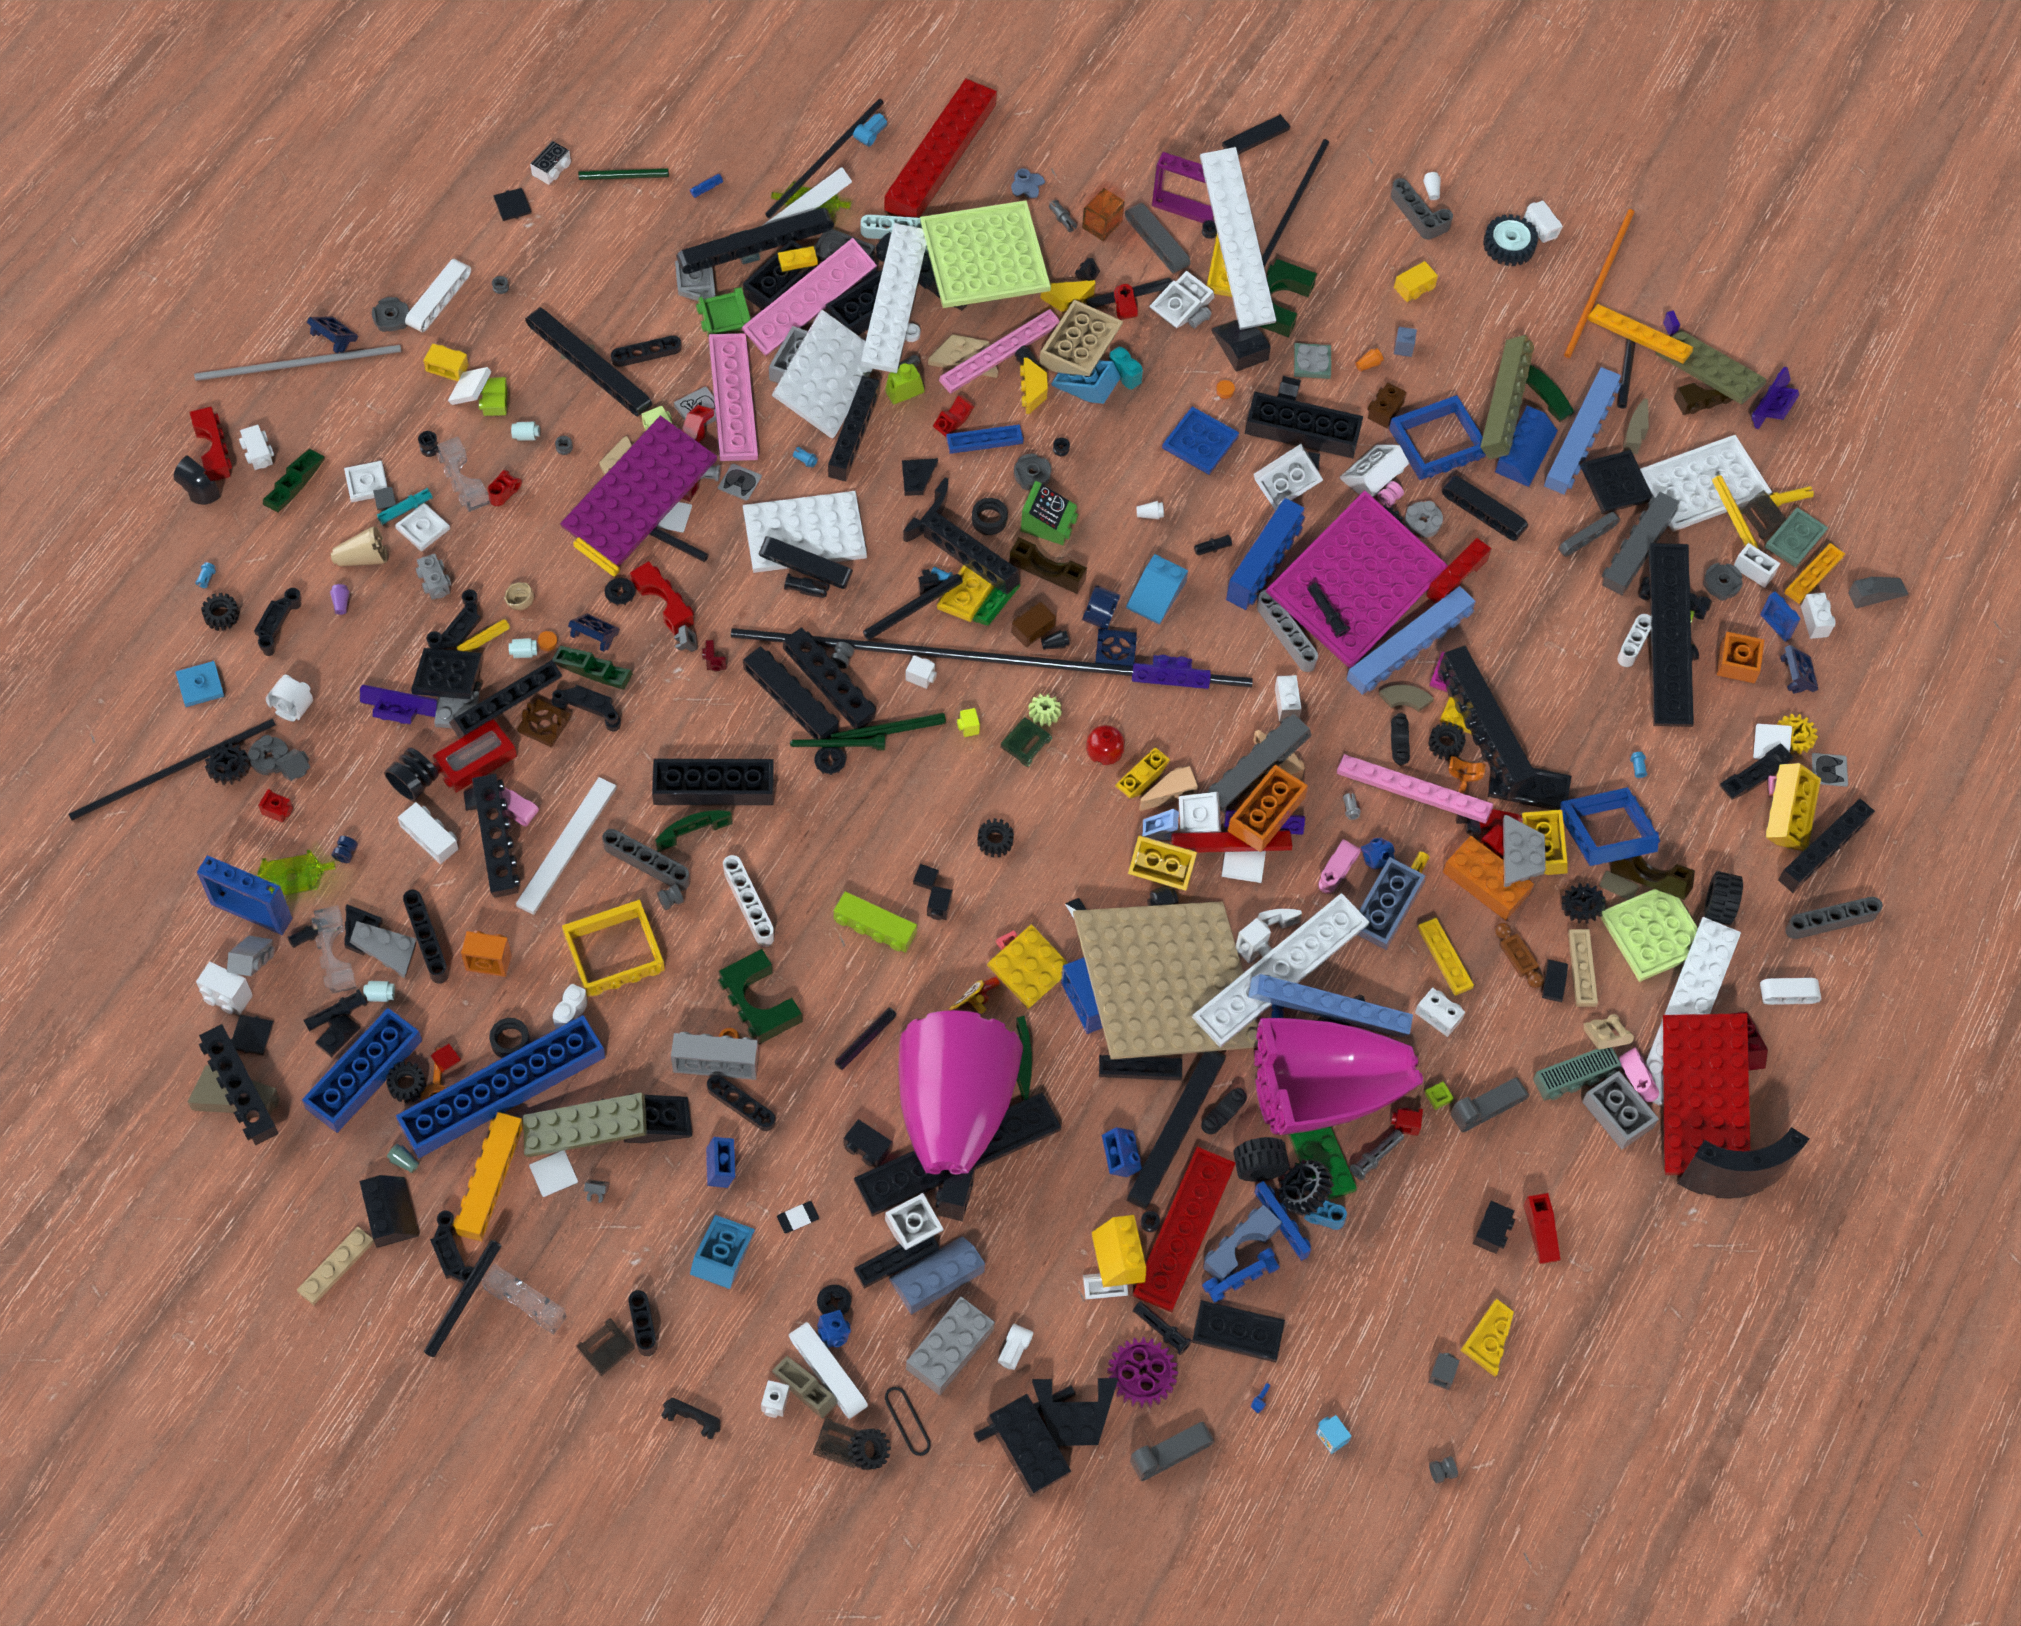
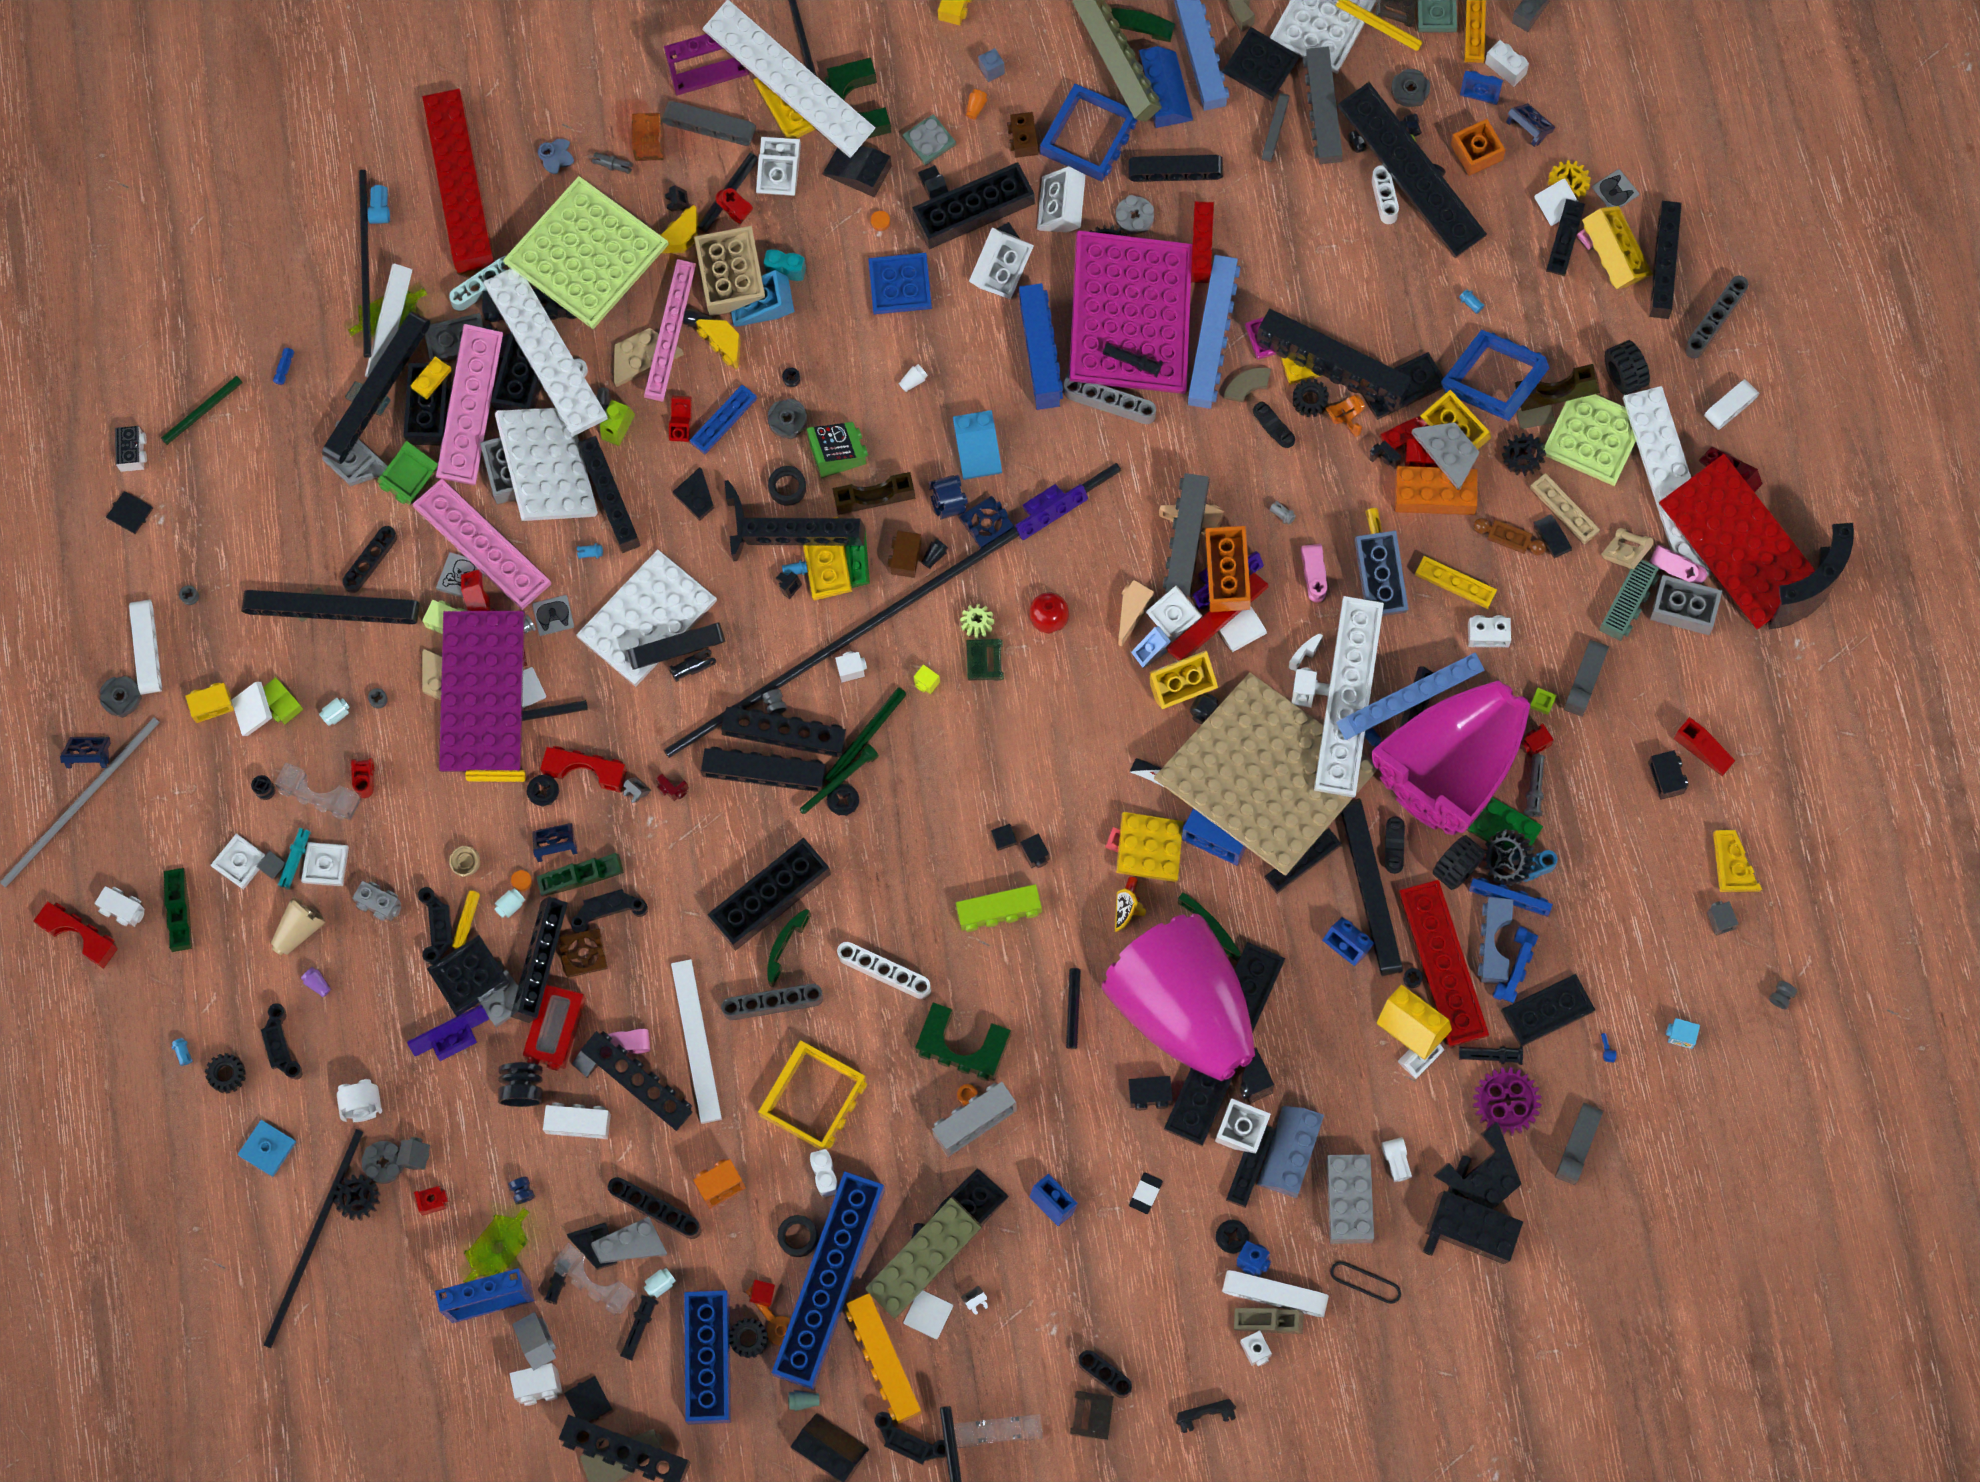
camera: 30 degrees left, 10 degrees up
(195, 482) = (98, 978): black brick -> none
(338, 1034) = (657, 1345): black slope -> none
(669, 897) = (818, 1019): dark grey wheel -> none
(722, 1251) = (1115, 1268): dark azure slope -> none
(739, 1104) = (1023, 1135): black beam -> none
(832, 1447) = (1335, 1347): clear smoke plate -> none
(858, 1449) = (1369, 1324): black tyre -> none
(912, 606) = (795, 615): black axle -> none
(995, 827) = (1022, 752): black tyre -> none
(1144, 774) = (1102, 615): yellow slope -> none
(1199, 317) = (806, 165): light grey pin -> none
(1209, 234) = (744, 87): black bush -> none
(1212, 545) = (988, 370): black axle -> none
(1287, 696) = (1159, 459): white brick -> none
(1377, 852) = (1337, 537): blue brick -> none
(1390, 494) = (1091, 213): bright pink wheel -> none
(1415, 789) = (1321, 459): bright pink plate -> none
(1756, 565) = (1427, 55): white brick -> none

